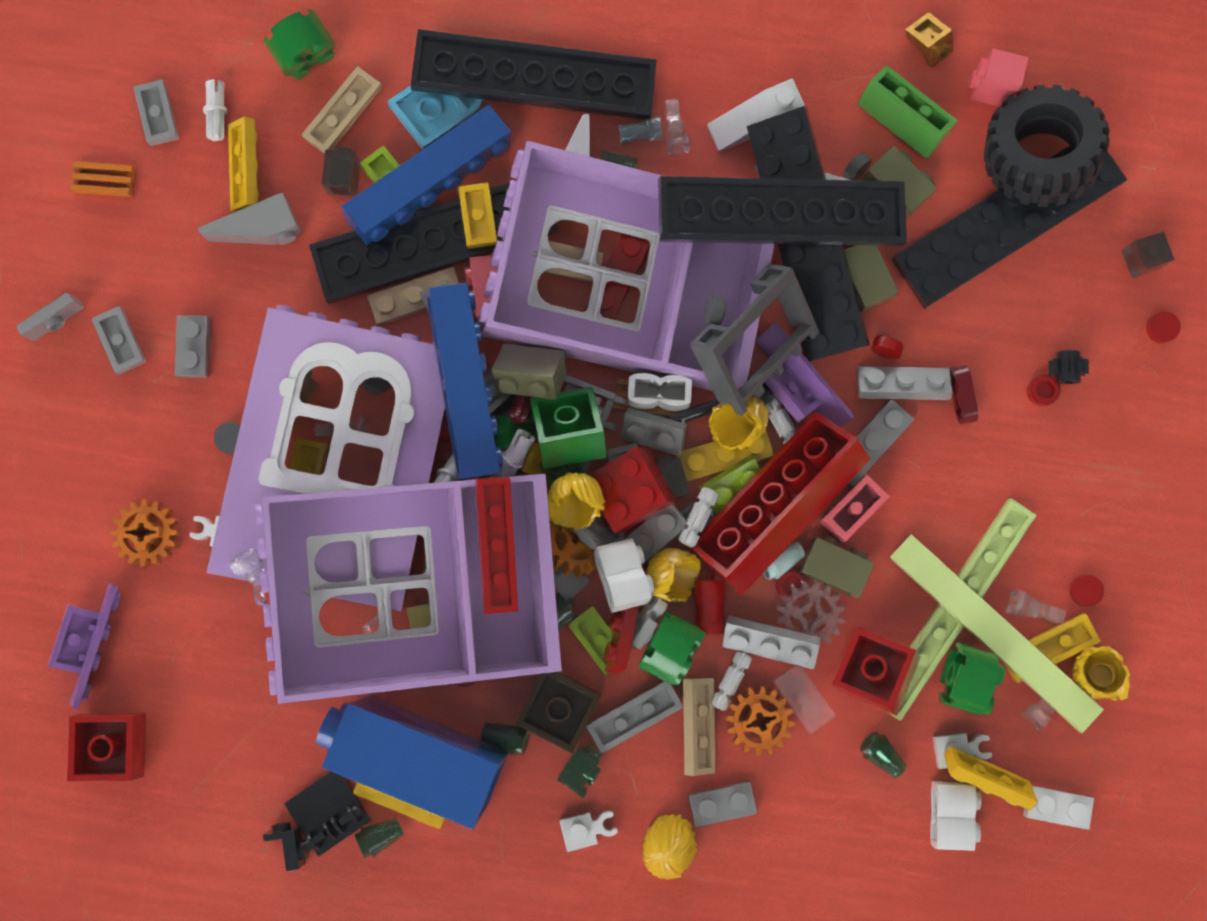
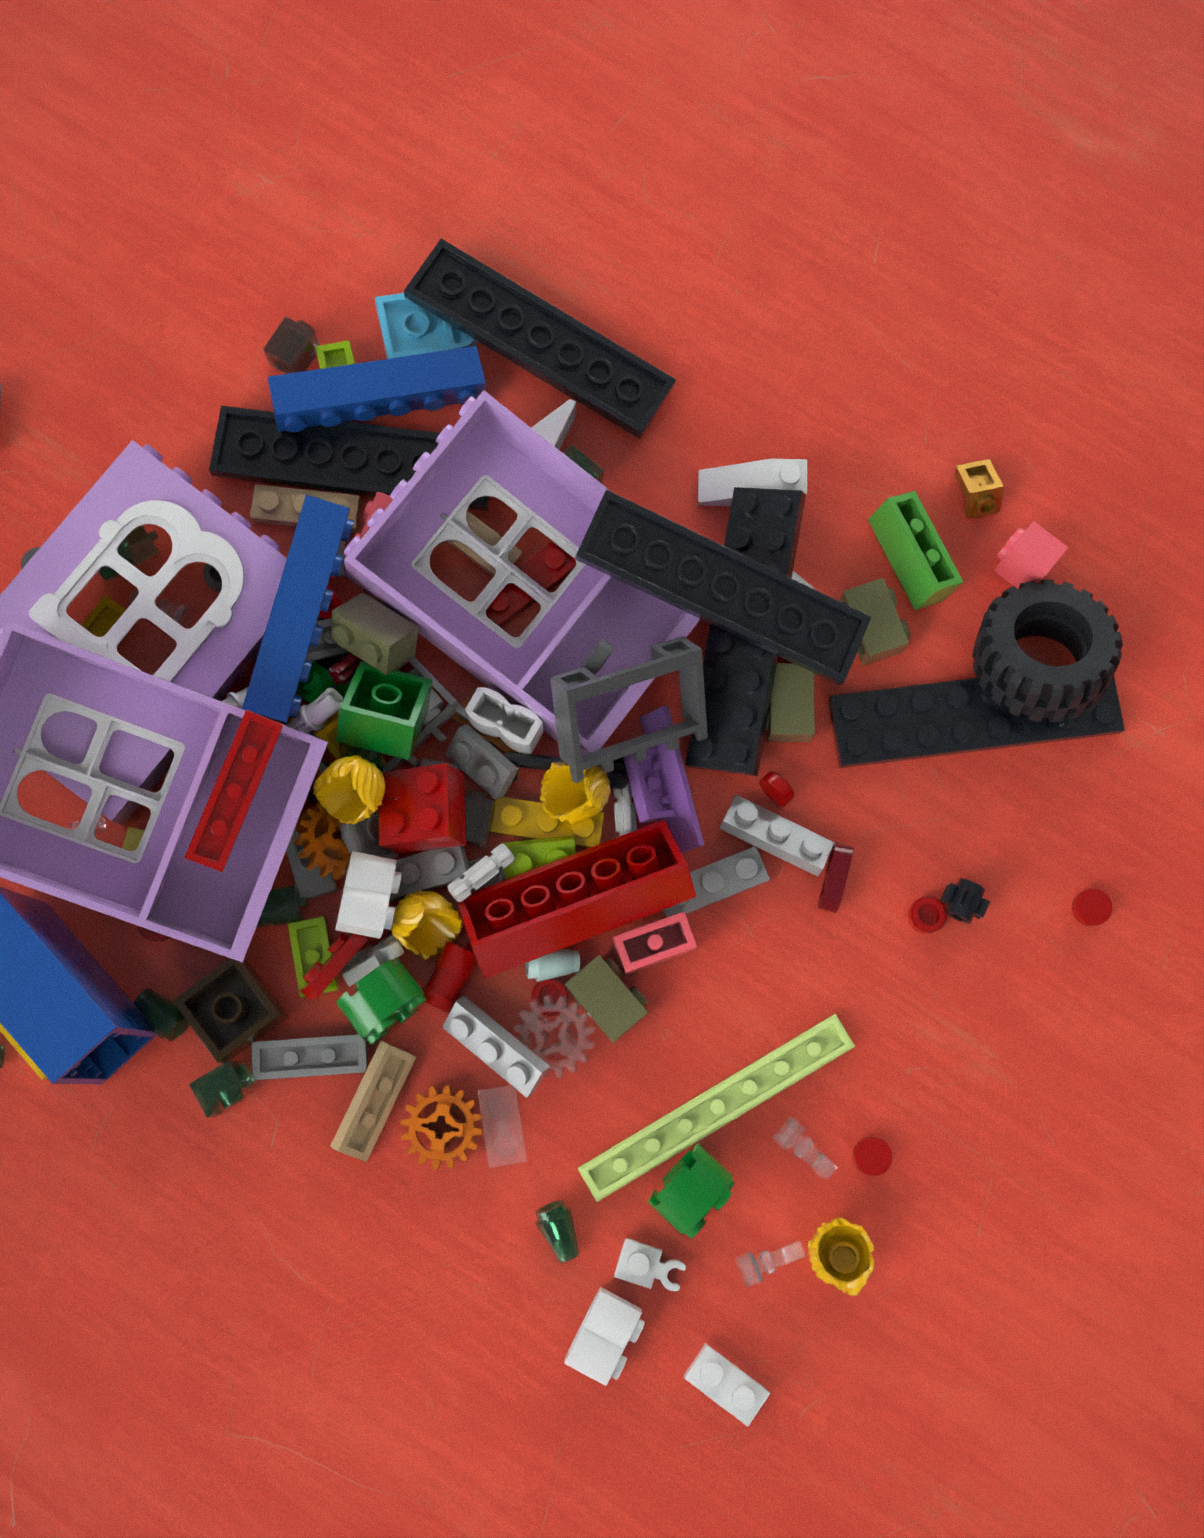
camera: 20 degrees right, 5 degrees down
(77, 176) = (27, 234): orange tile -> none
(156, 112) = (137, 206): light grey plate -> none
(192, 346) = (51, 455): light grey plate -> none
(215, 110) = (197, 230): white axle -> none
(242, 163) = (197, 296): yellow plate -> none
(261, 223) = (186, 362): light grey slope -> none
(300, 43) = (315, 201): green brick -> none
(342, 110) = (326, 287): tan plate -> none
(477, 215) = (408, 444): yellow plate -> none
(581, 831) = (193, 1154): white plate -> none
(649, 129) = (624, 445): clear light blue pin -> none
(669, 847) = (275, 1218): yellow hair -> none
(677, 139) = (658, 470): clear piece -> none
(722, 804) = (358, 1200): light grey plate -> none
(731, 680) = (433, 1069): white axle -> none
(857, 167) = (835, 584): dark grey tile -> none
(876, 670) = (593, 1131): red brick -> none
(990, 778) = (662, 1312): yellow plate -> none
(996, 634) = (746, 1156): yellowish green tile -> none
(1064, 640) = (800, 1200): yellow plate -> none
(1148, 254) = (1109, 820): clear smoke brick -> none

